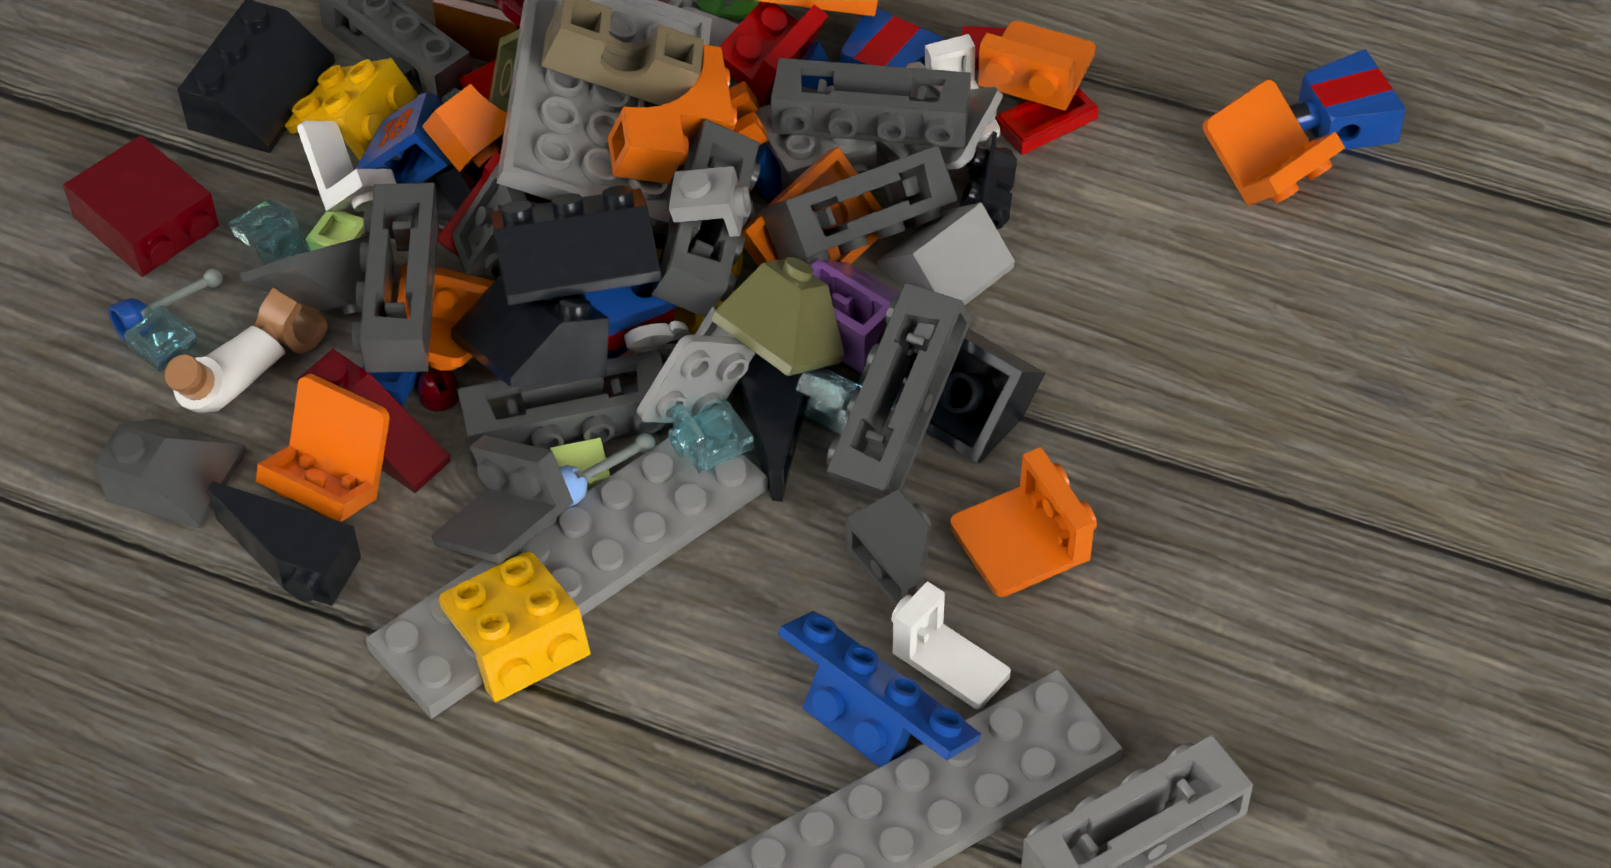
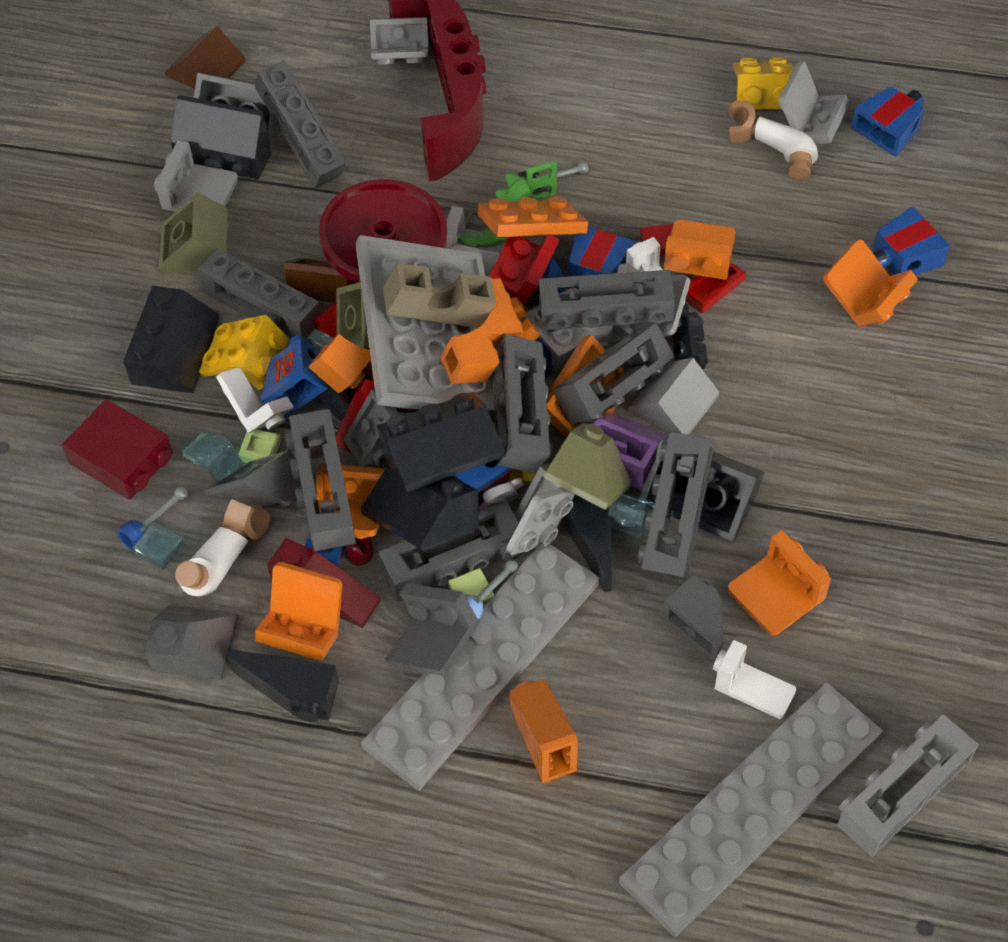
camera: 10 degrees left, 5 degrees up
(516, 624) = (462, 714): yellow bracket -> none
(627, 665) = (544, 730): none -> orange slope
(709, 436) = (556, 556): clear light blue bracket -> none
(710, 195) = (525, 392): light grey bracket -> none
(870, 700) = (713, 728): blue bracket -> none

